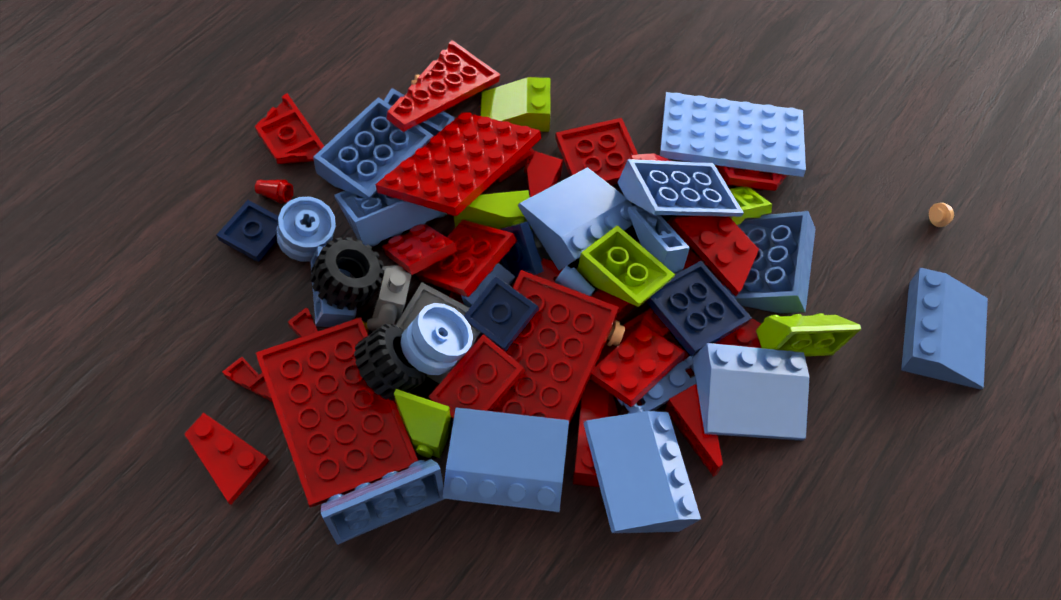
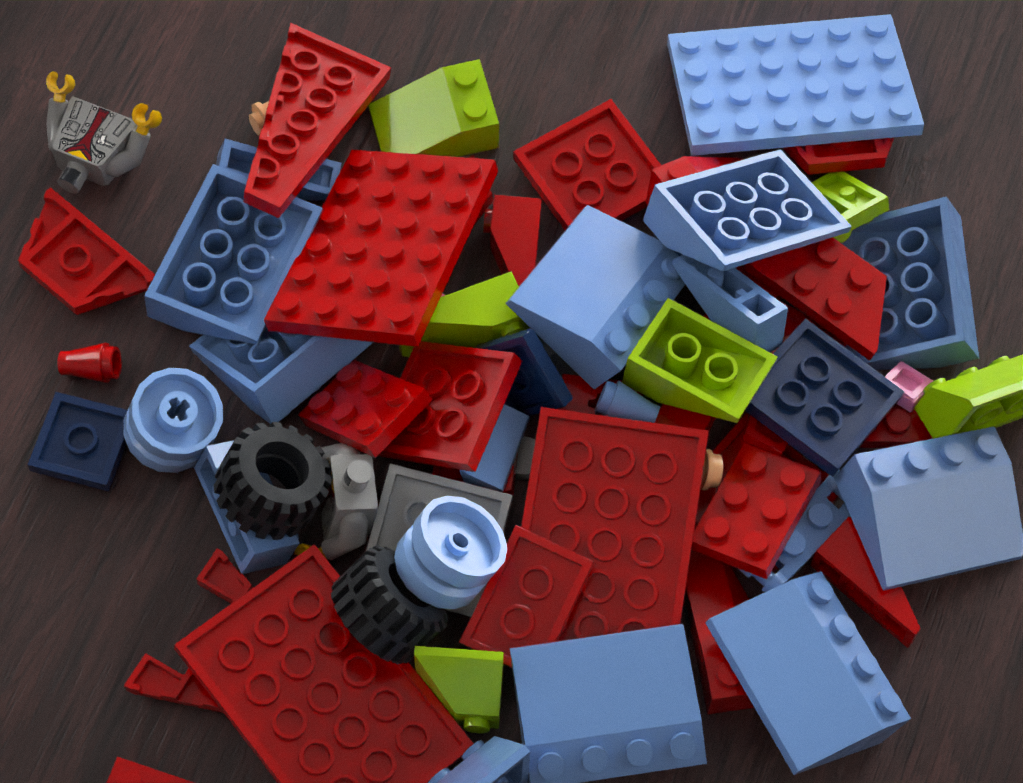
camera: 15 degrees left, 5 degrees up
(320, 74) = (93, 140): none -> light grey torso
(501, 313) = (532, 485): dark blue plate -> none
(758, 315) = (911, 382): none -> bright pink tile

